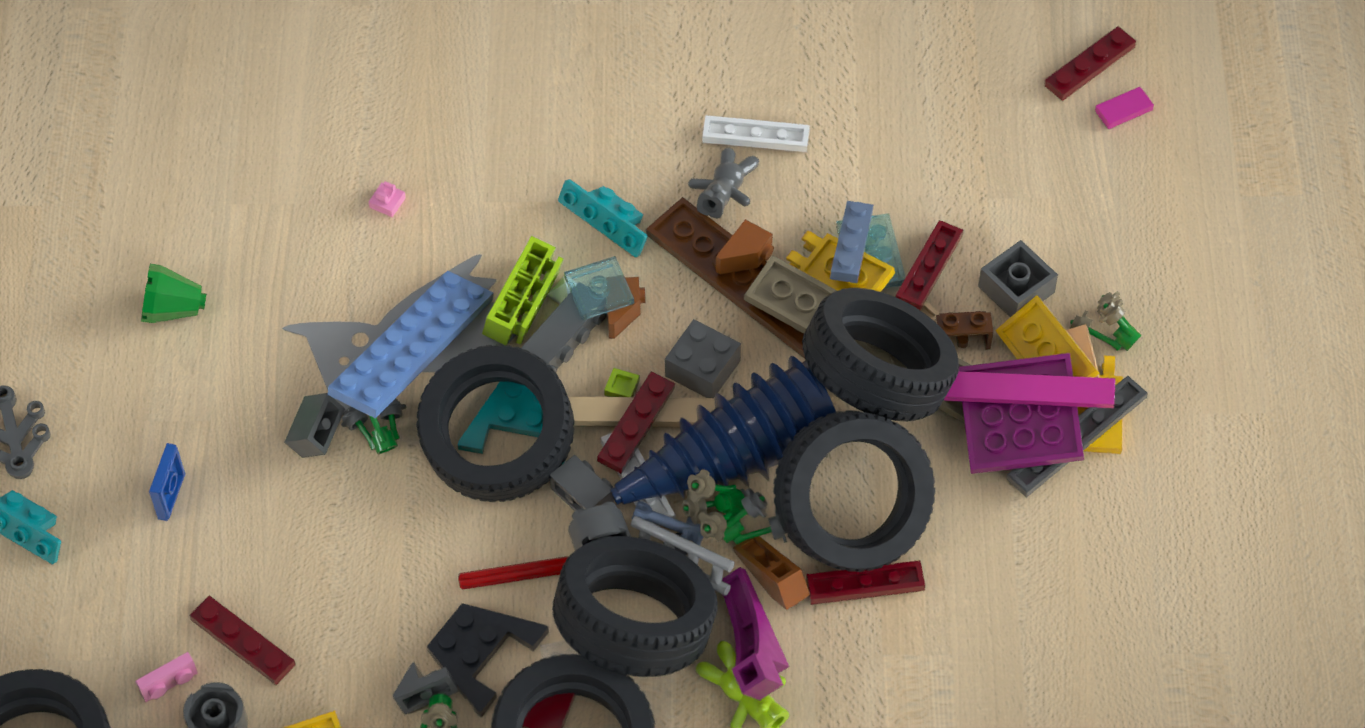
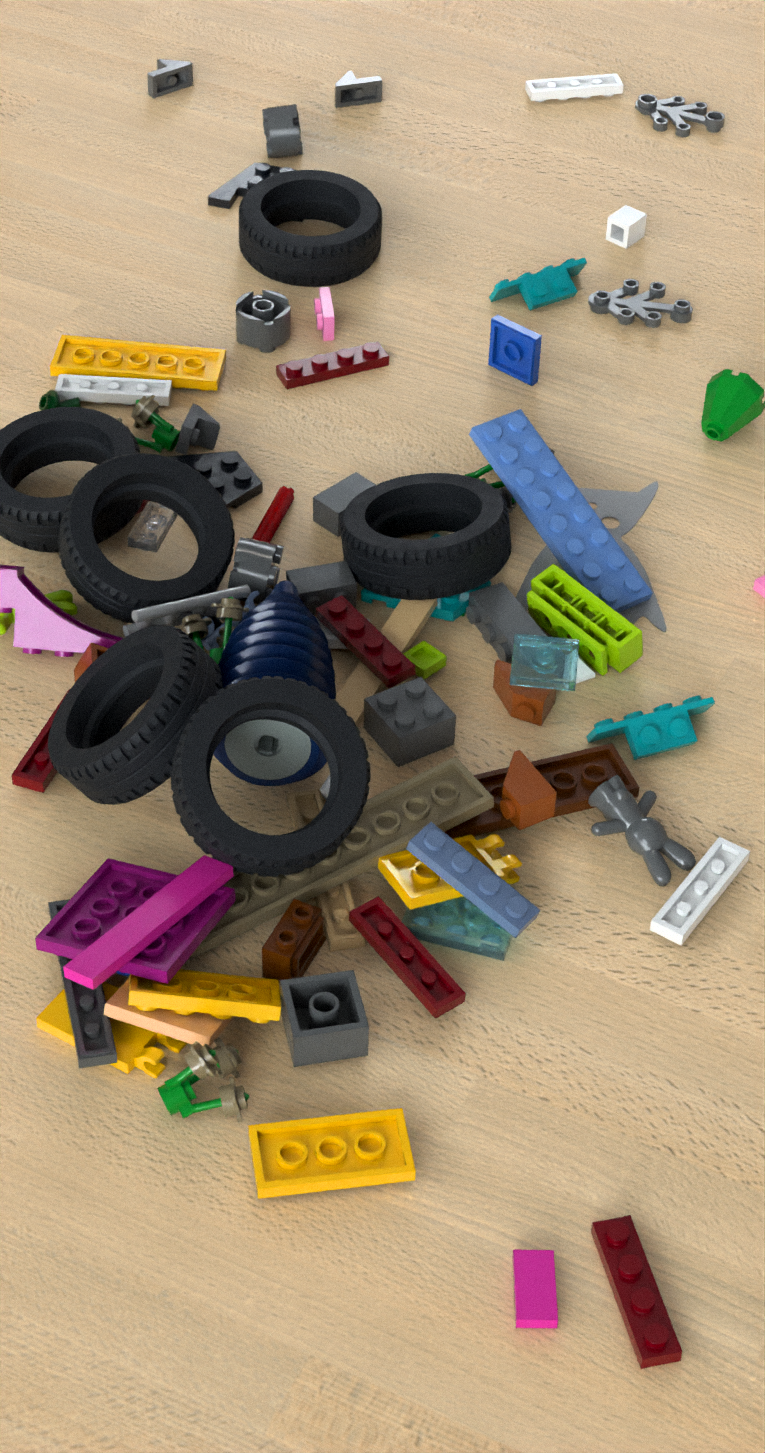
camera: 115 degrees right, 15 degrees down
(458, 522) = (332, 502): none -> dark grey brick
(1108, 239) = (331, 1153): none -> yellow plate

